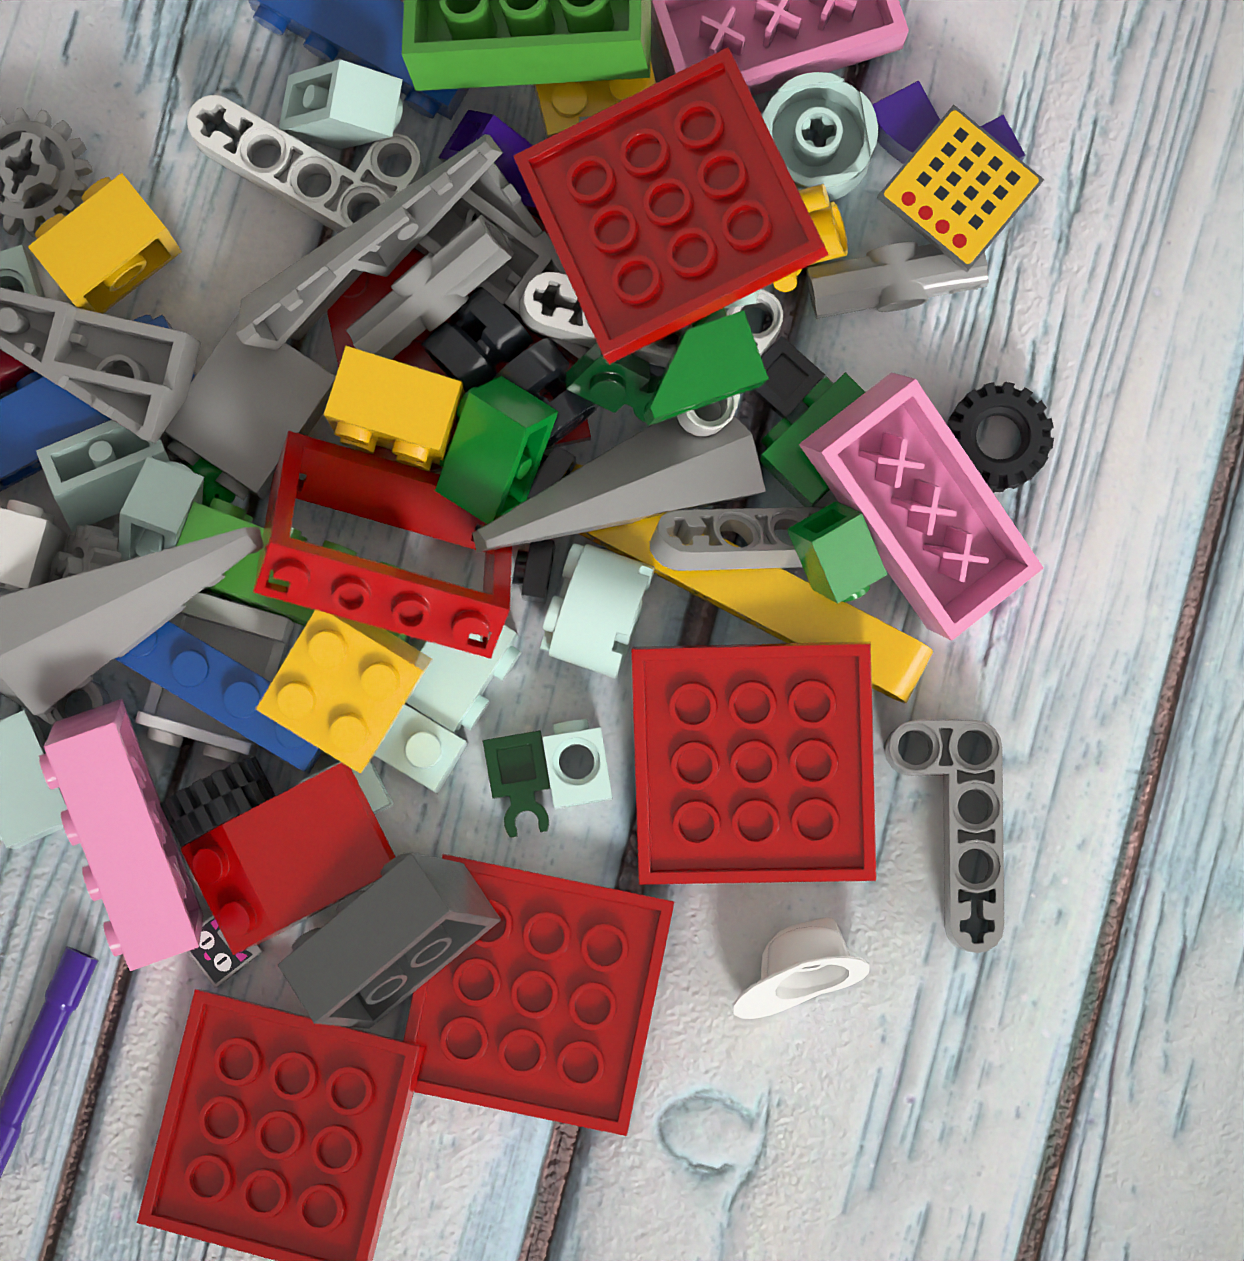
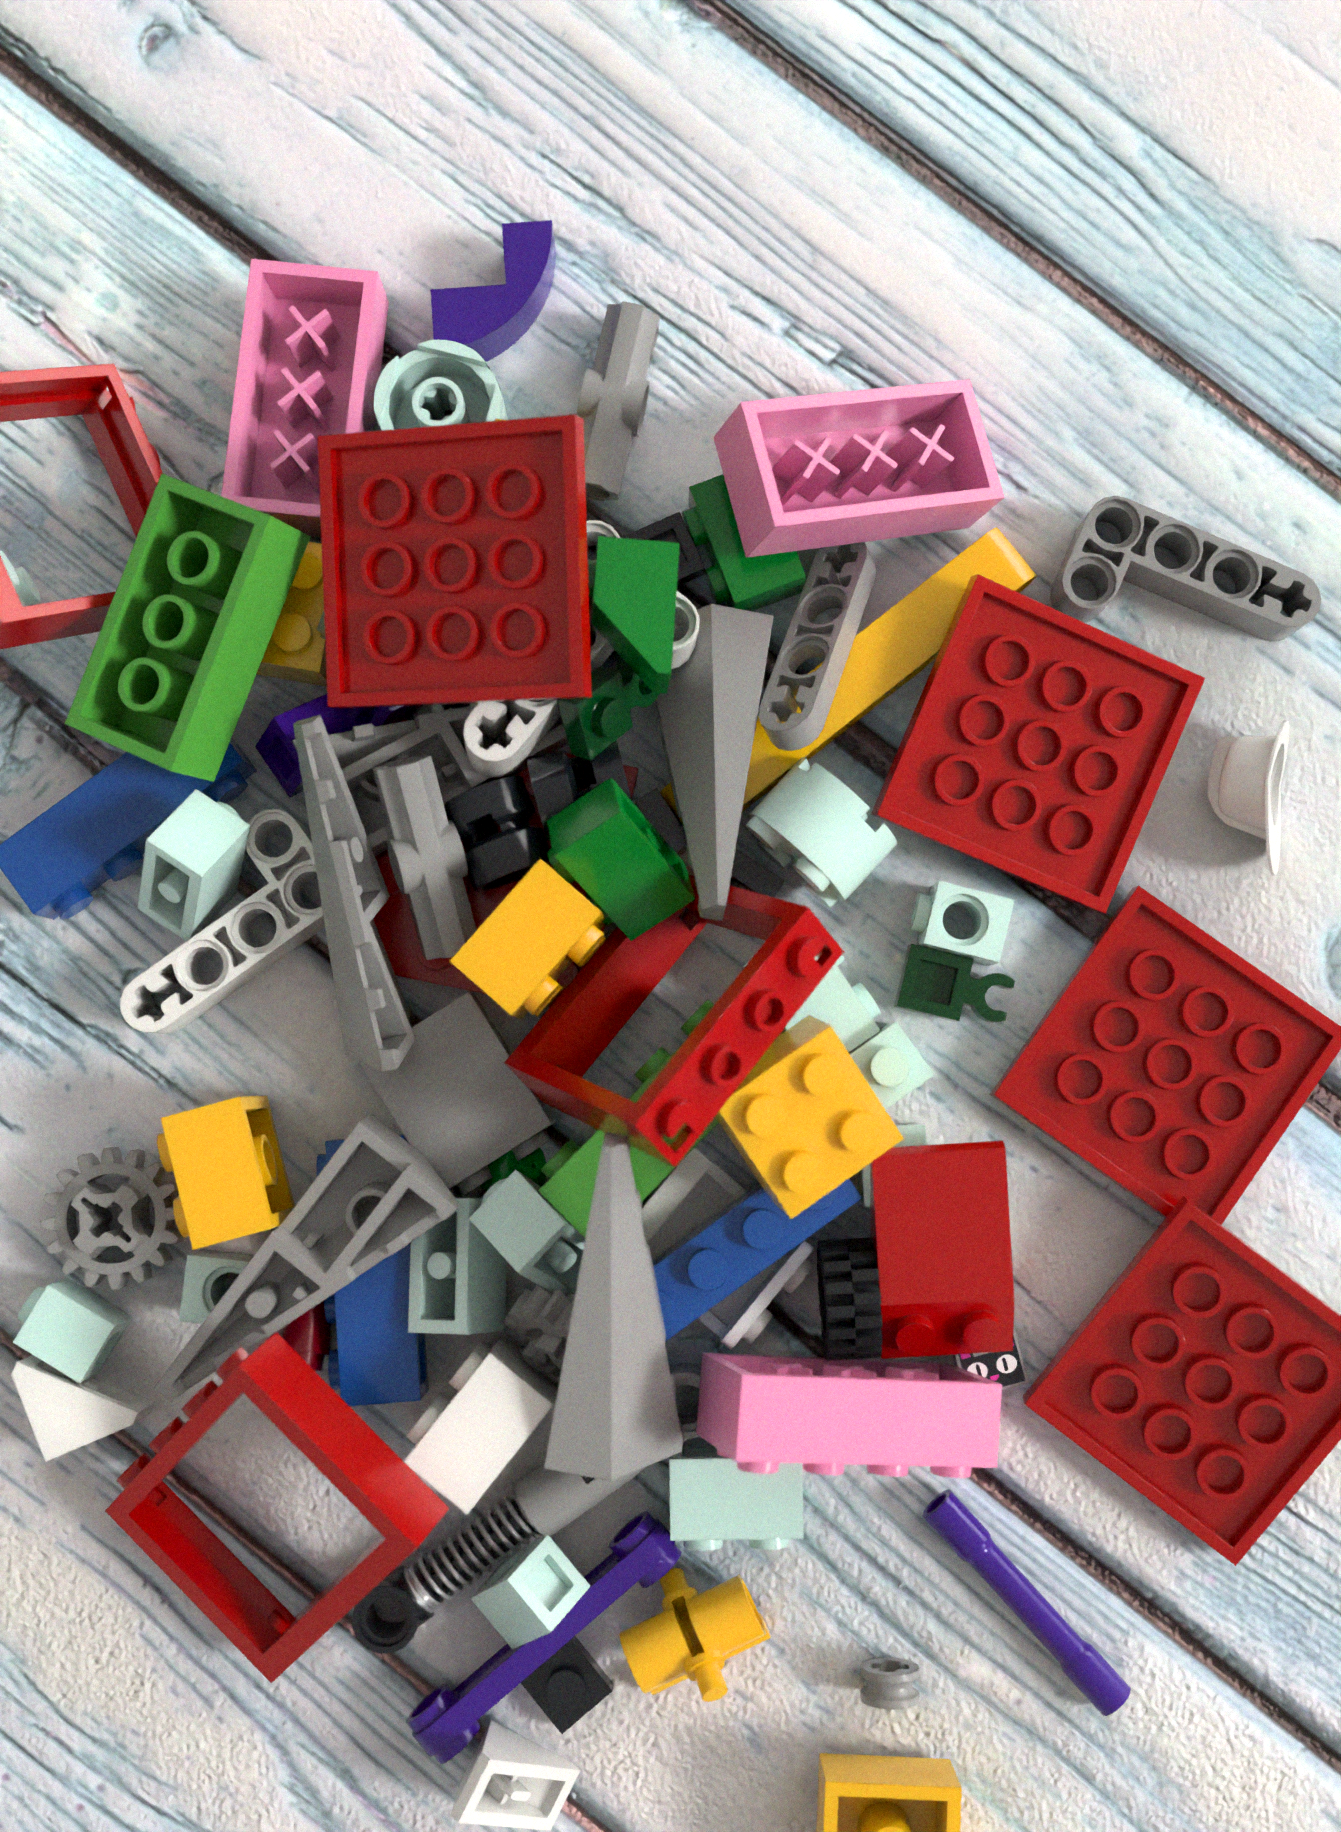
camera: 65 degrees left, 0 degrees up
(387, 940) = (1069, 1188): dark grey brick -> none
(837, 552) = (871, 567): brick -> none
(960, 188) = (558, 293): yellow tile -> none
(1024, 412) = (807, 339): black tyre -> none

